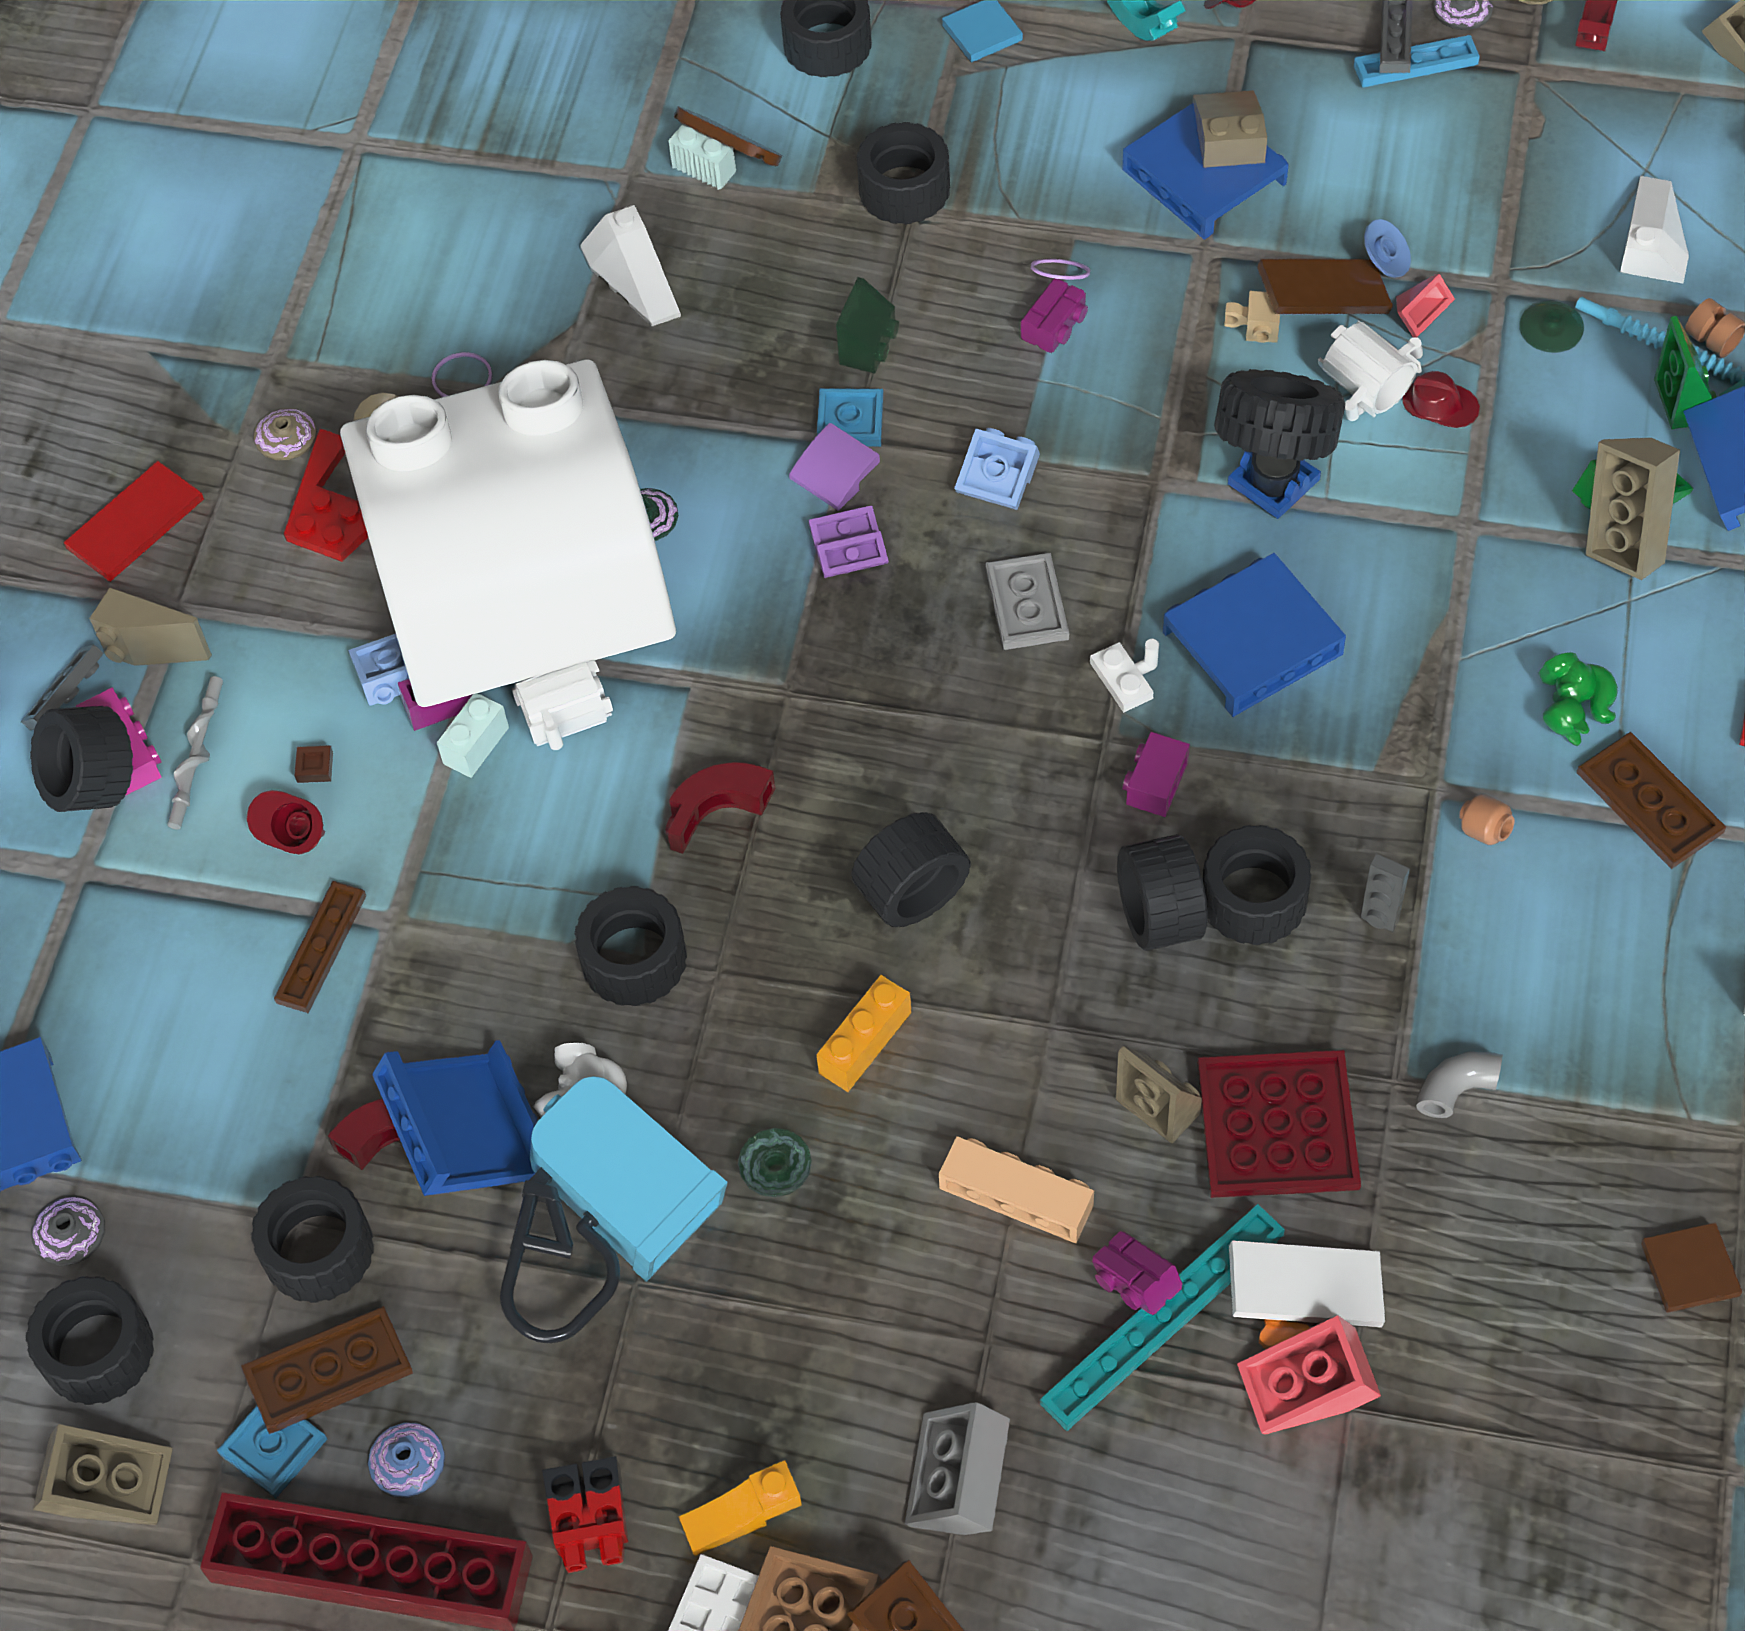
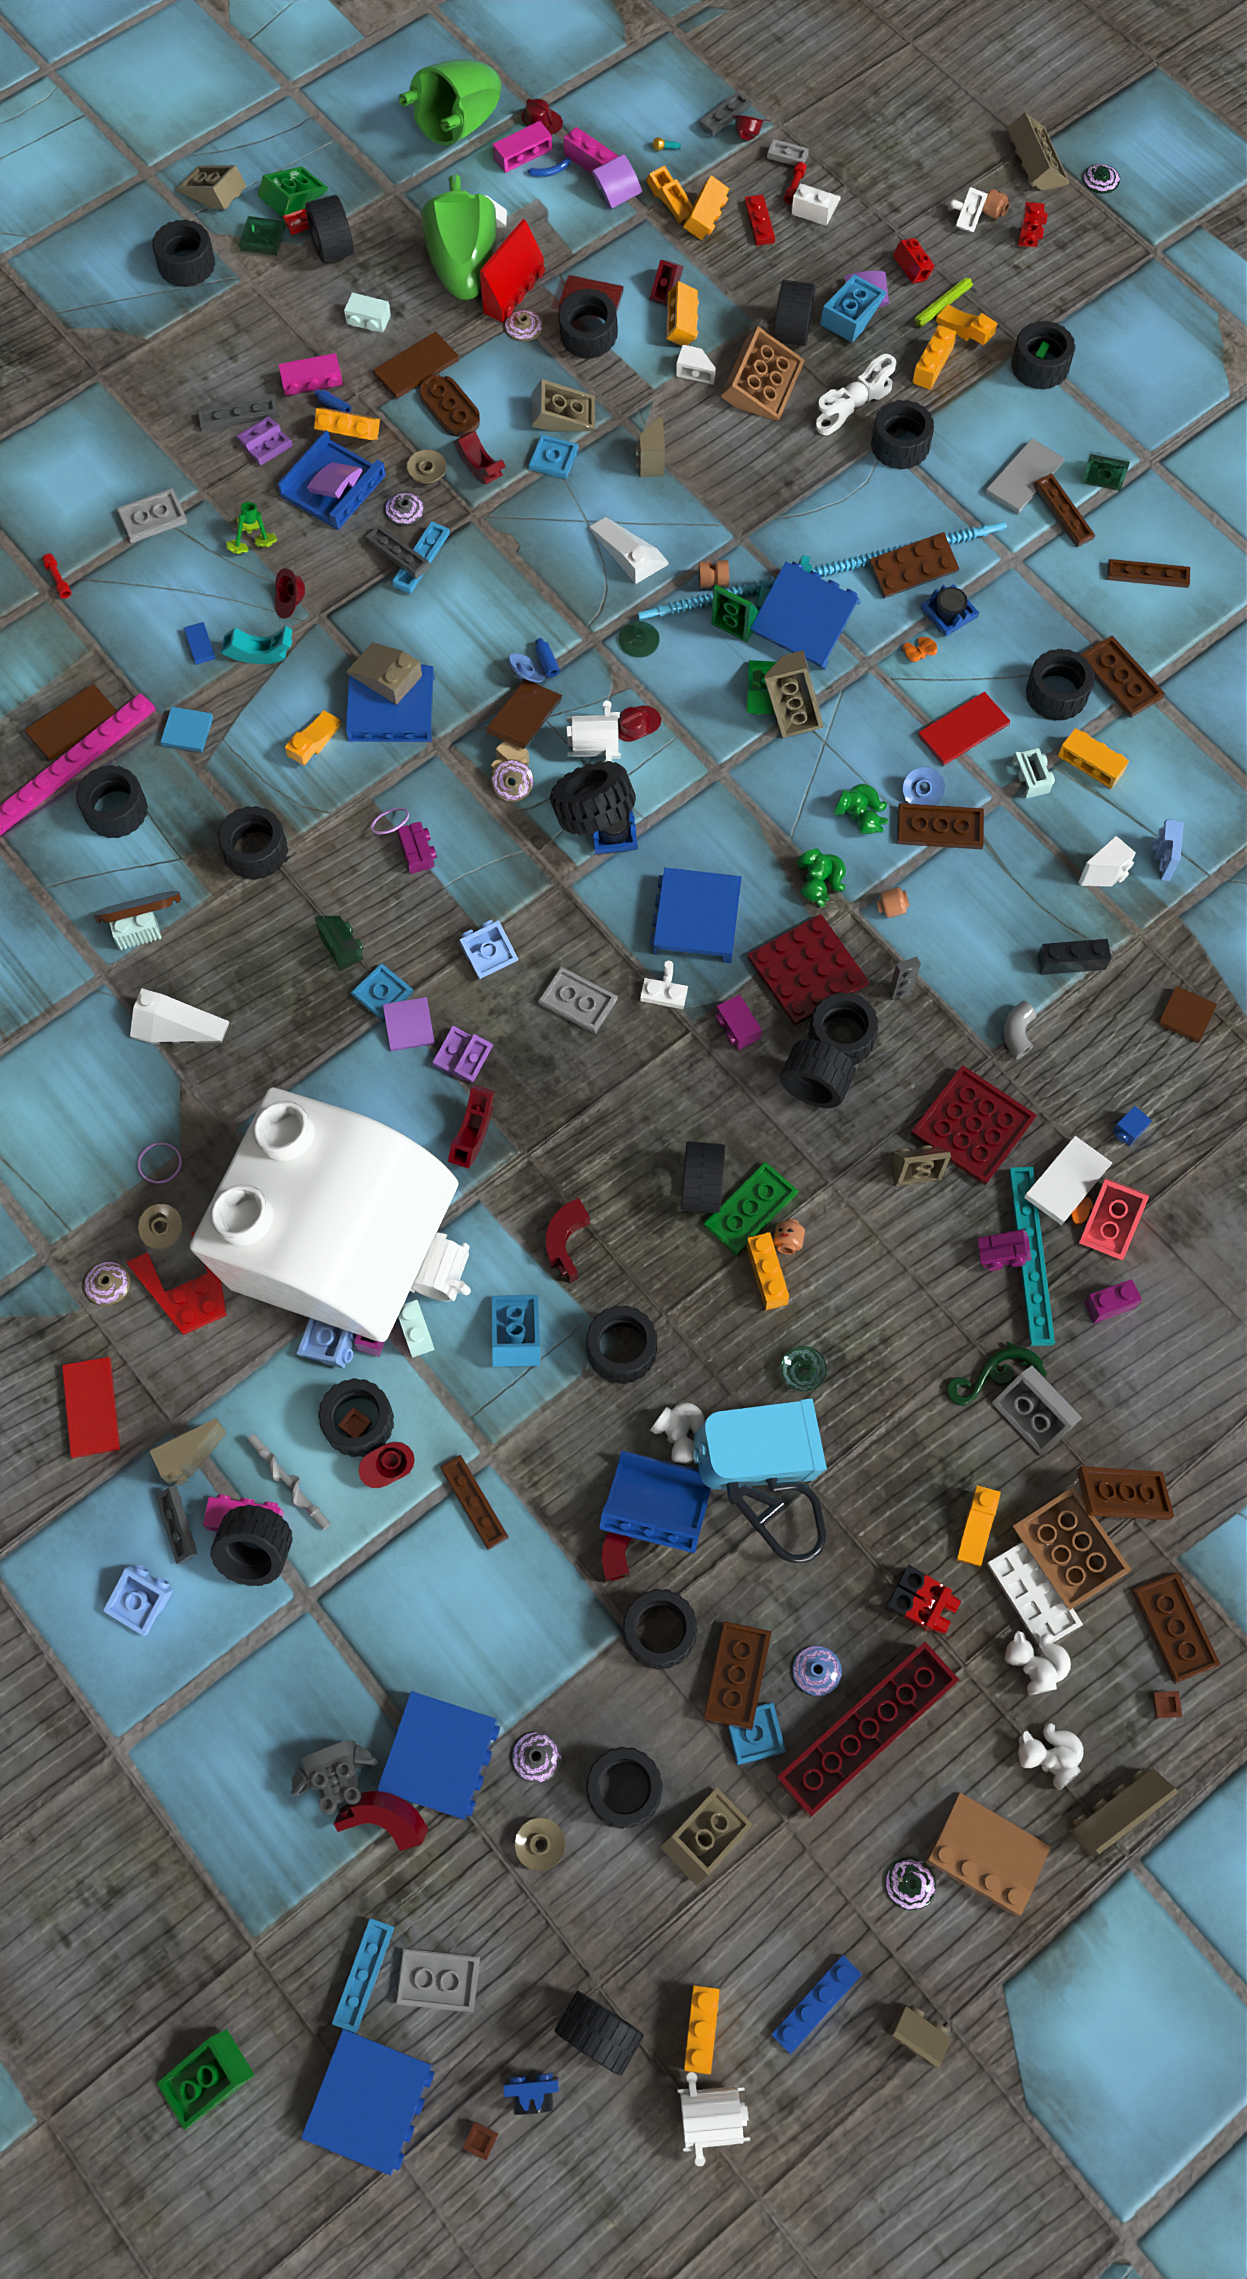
camera: 55 degrees left, 10 degrees up
(314, 722) = (344, 1392): none -> black tyre
(556, 833) = (515, 1330): none -> dark azure slope
(762, 618) = (473, 1128): none -> dark red arch
(930, 1023) = (789, 1236): none -> nougat head
(936, 961) = (750, 1208): none -> green tile
(966, 1378) = (989, 1370): none -> dark green plant
(1016, 1188) = (912, 1267): light nougat brick -> none
(1087, 135) = (313, 738): none -> light orange slope
(1188, 1456) = (1112, 1301): none -> magenta brick
(1240, 344) = (522, 775): none -> dish
(1310, 791) = (806, 968): none -> dark red plate
(1423, 259) = (546, 658): none -> blue cylinder
(1423, 304) = (572, 681): coral slope -> none
(1445, 709) = (819, 868): none -> green animal
(1457, 1308) = (1131, 1126): none -> blue brick
(1626, 1071) = (1074, 956): none -> black brick
(1664, 733) = (931, 794): none -> medium blue dish
(1689, 80) = (553, 456): none -> dark azure tile

